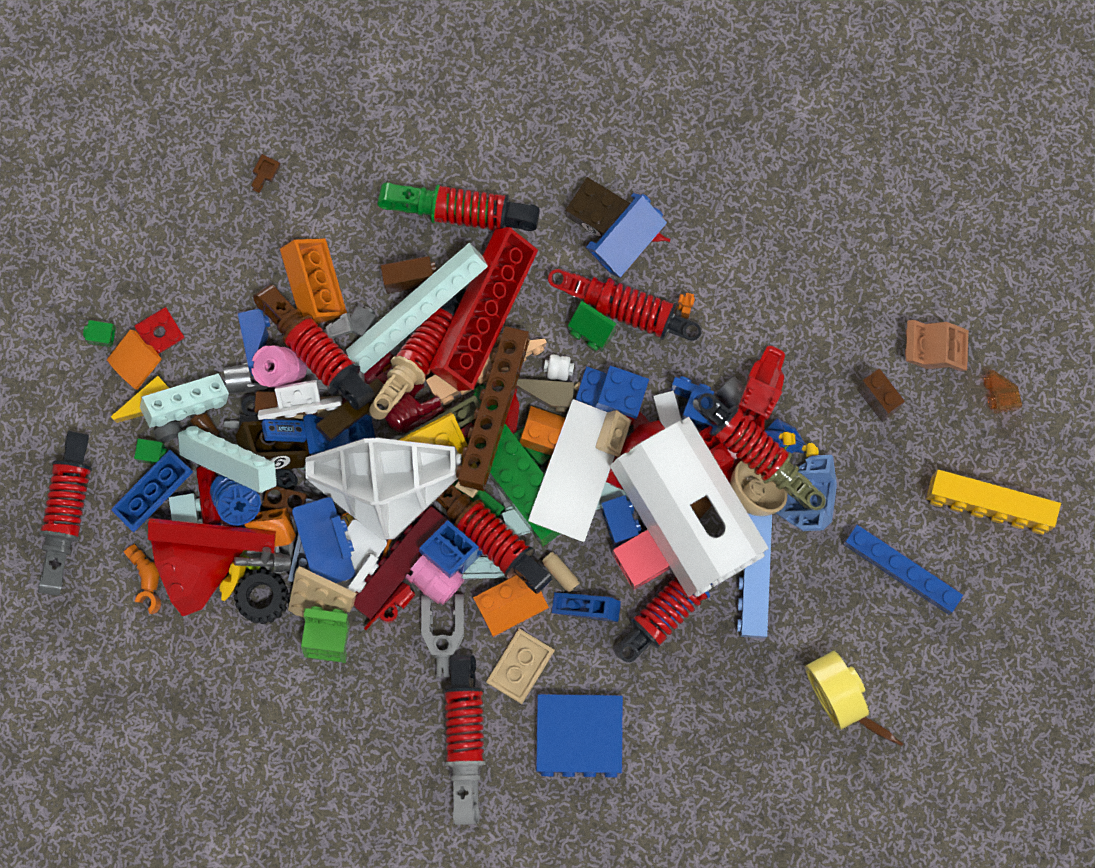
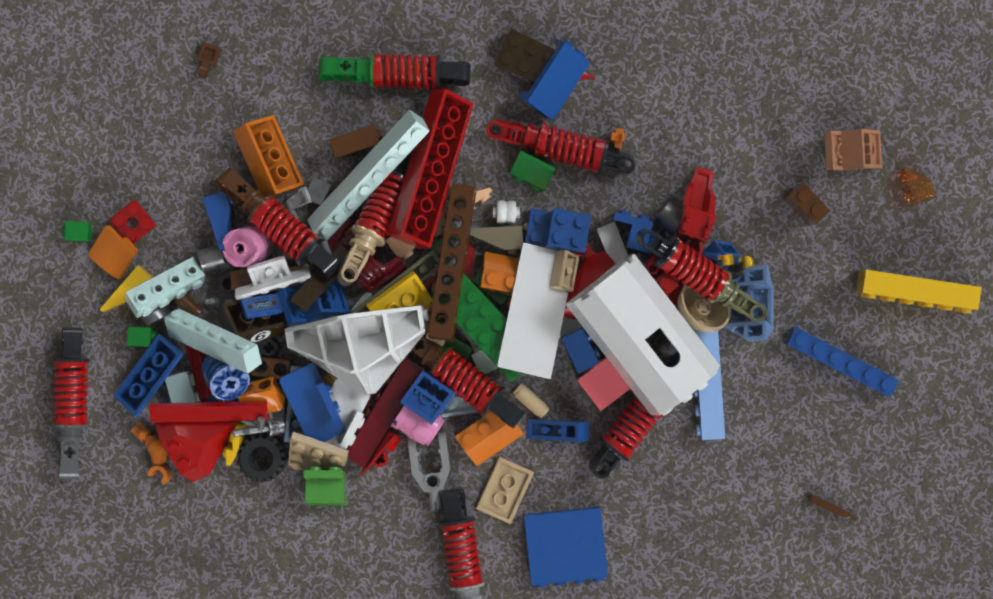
camera: 10 degrees left, 10 degrees up
(837, 689) = (795, 481): light yellow piece -> none

